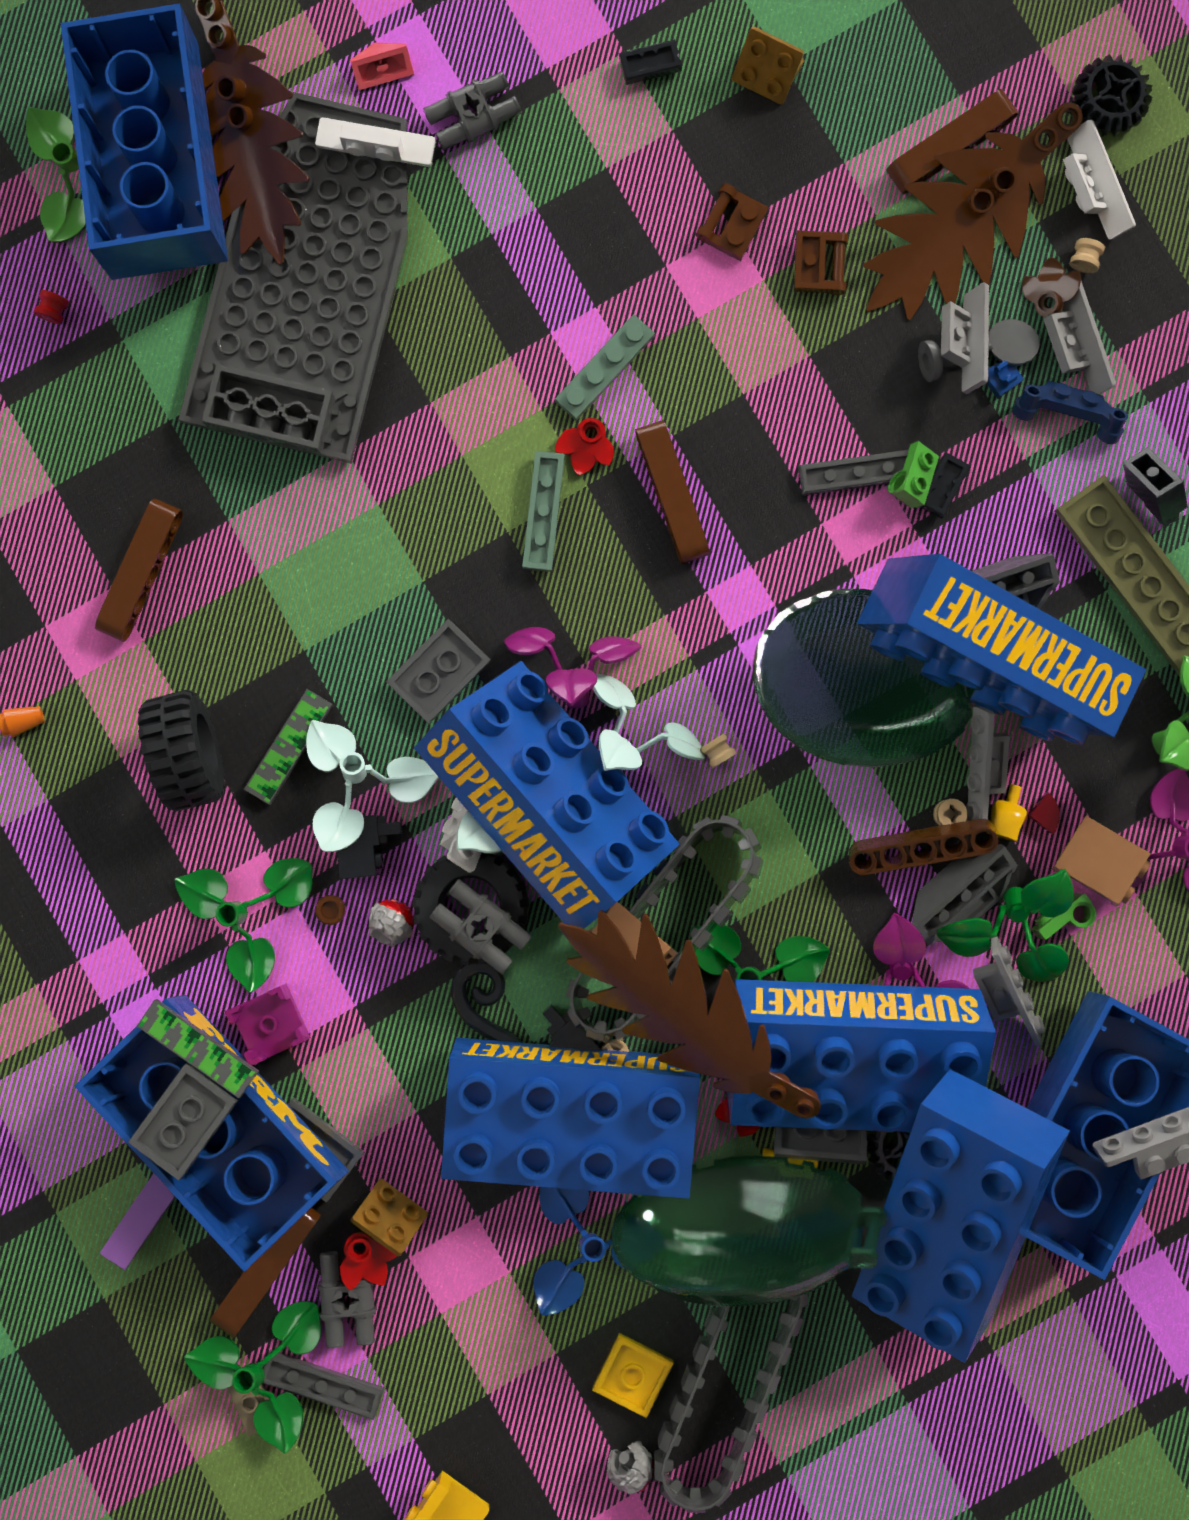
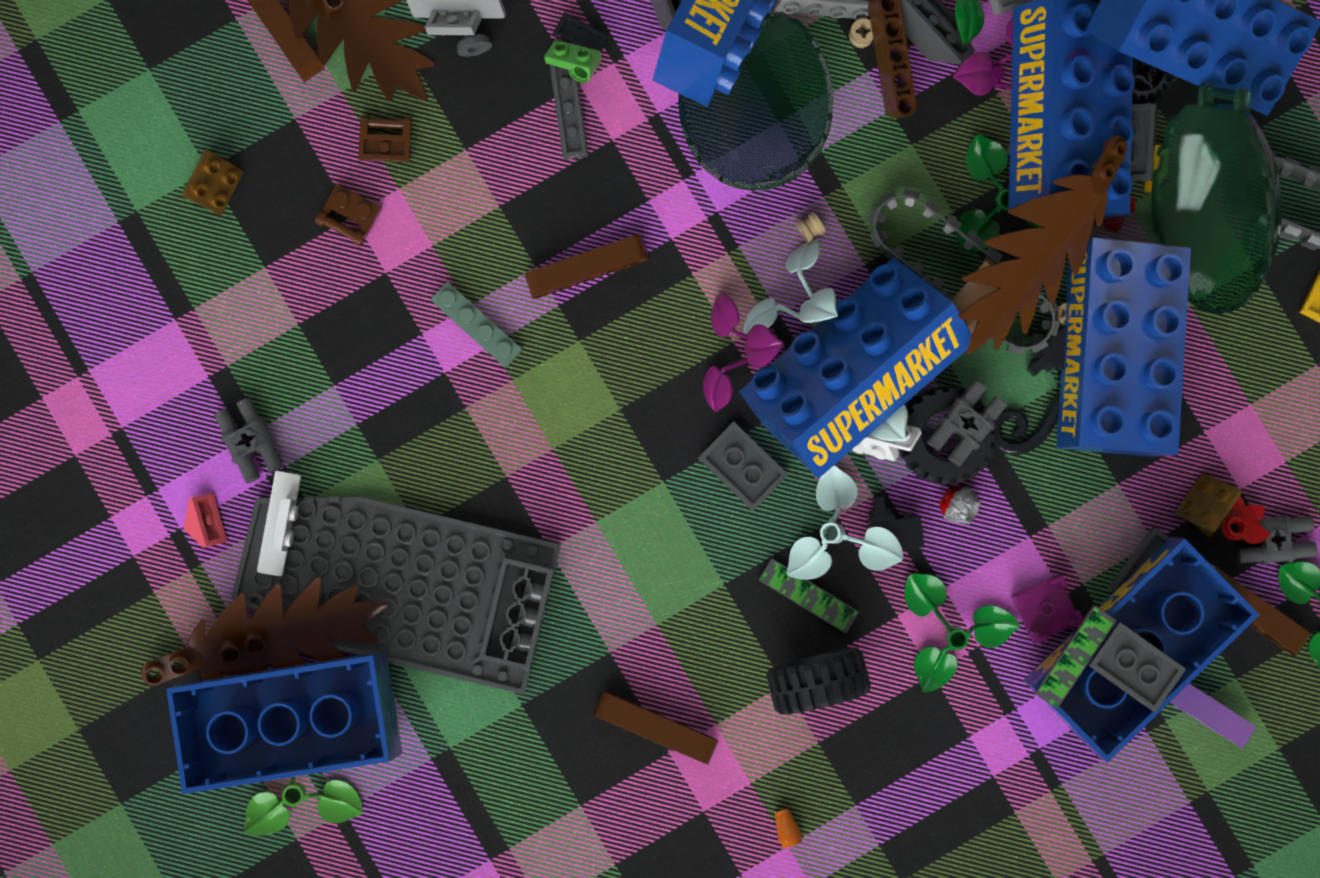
camera: 90 degrees left, 0 degrees up
(51, 307) = (422, 809): red wheel -> none
(330, 909) = (948, 558): reddish brown tile -> none
(543, 511) = (603, 377): sand green plate -> none
(554, 1283) = (1258, 366): blue plant -> none
(586, 450) = (550, 341): red plate -> none
(650, 62) = (205, 285): black plate -> none

